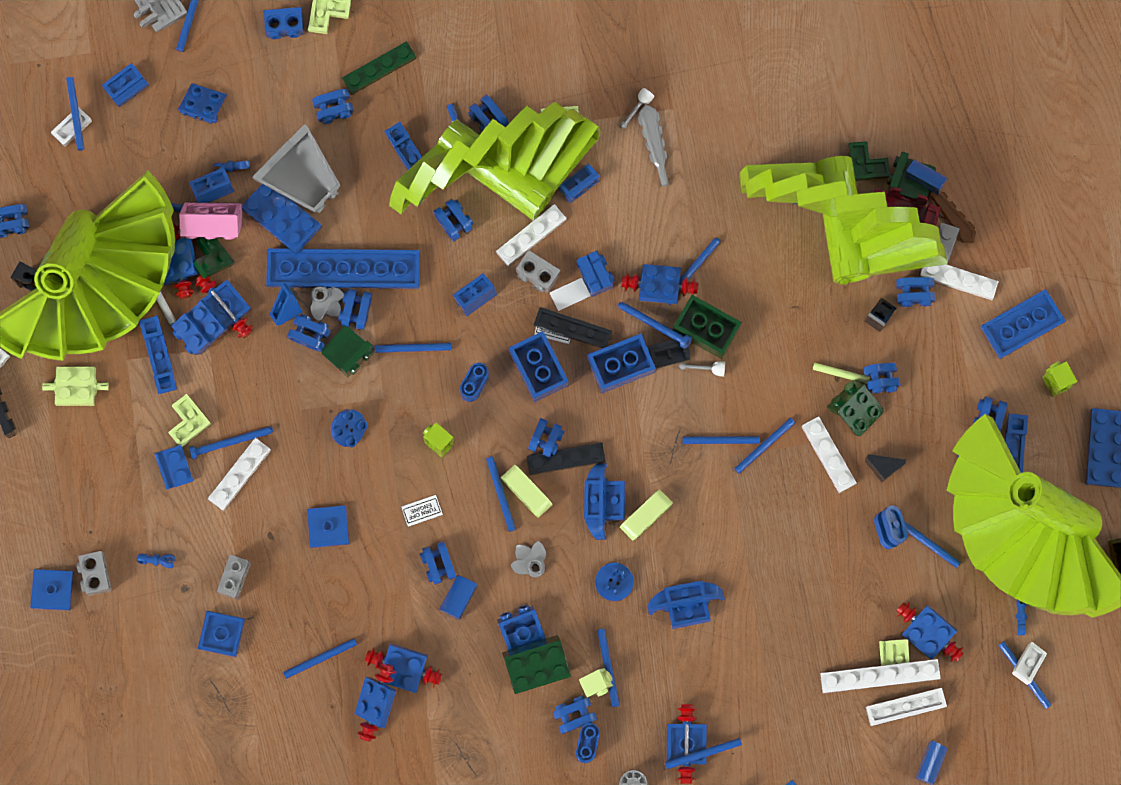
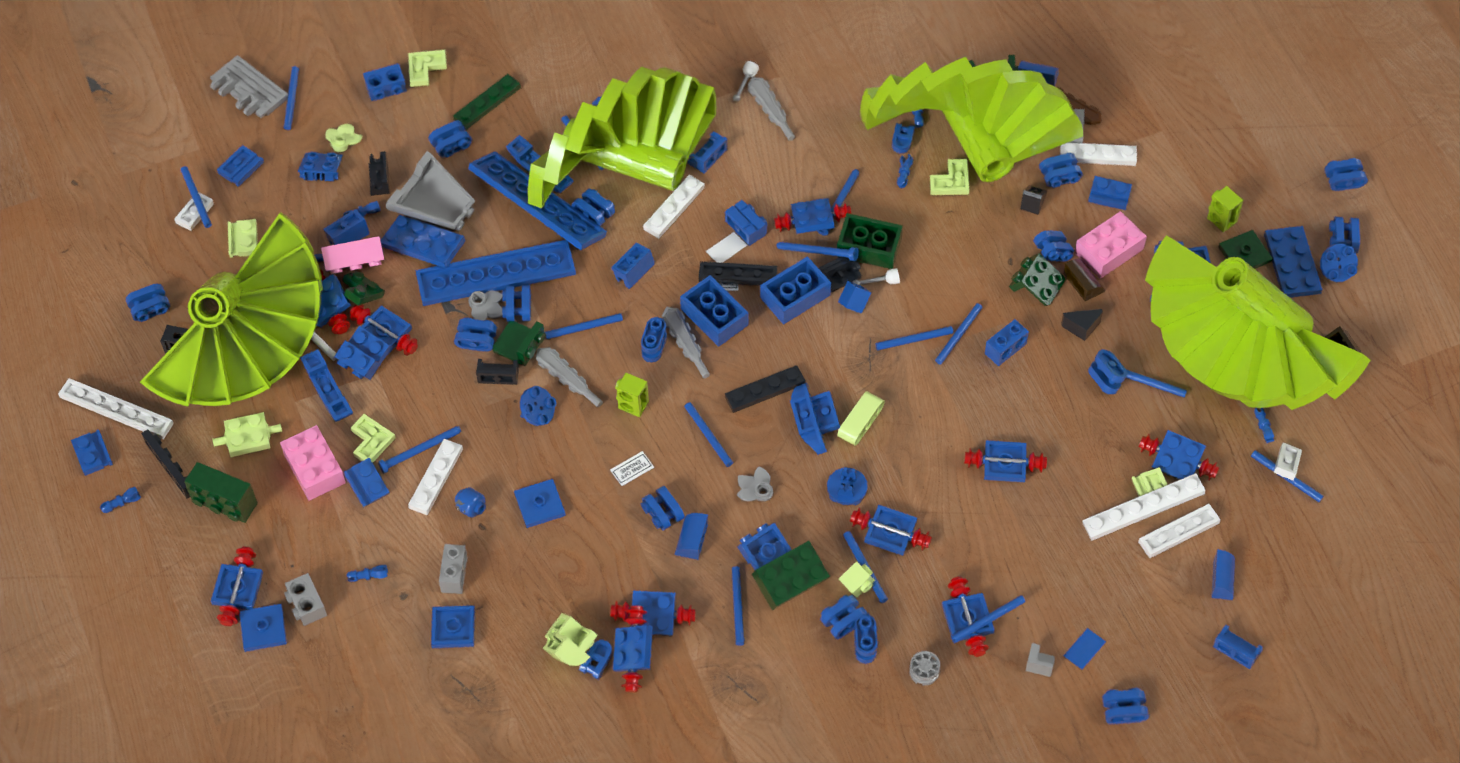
camera: 10 degrees left, 20 degrees down
(36, 544) = (237, 586): none -> blue plate
(37, 448) = (221, 492): none -> dark green brick
(112, 167) = (242, 237): none -> yellowish green plate
(128, 434) = (312, 462): none -> bright pink brick
(231, 73) = (342, 137): none -> yellowish green plate
(256, 129) = (379, 175): none -> black hinge
(264, 512) = (470, 502): none -> blue head
(285, 306) = (446, 313): blue slope -> none
(319, 658) = (576, 616): blue piece -> none
(320, 378) = (497, 373): none -> black hinge
(320, 679) = (569, 641): none -> yellowish green brick
(348, 694) = (600, 652): none -> blue plate
(379, 387) = (560, 368): none -> light grey sword
(416, 223) = (555, 213): none -> blue plate
(482, 677) = (737, 599): none -> blue bar
(502, 374) = (681, 331): none -> light grey sword
(526, 491) = (733, 424): yellowish green beam -> none
(541, 268) = (689, 233): light grey brick -> none
(550, 447) = (748, 370): blue brick -> none
(641, 638) = (890, 529): none -> blue plate
(676, 382) = (854, 297): none -> blue panel
(686, 602) = (925, 487): blue plate -> none
(764, 251) = (904, 170): none -> blue piece
(767, 594) = (1005, 461): none -> blue plate
(771, 219) = (901, 142): none -> blue plate
(805, 470) = (1006, 342): none -> blue brick
(808, 278) = (954, 183): none -> yellowish green plate
(829, 454) = (1037, 337): white plate -> none
(841, 373) = (1008, 255): yellowish green bar -> none
(900, 417) = (1082, 279): none -> dark brown brick
(937, 388) = (1110, 244): none -> bright pink brick
(956, 326) = (1110, 193): none -> blue plate
(1022, 324) = (1172, 176): blue plate -> none
(1065, 426) = (1247, 247): none -> dark green plate

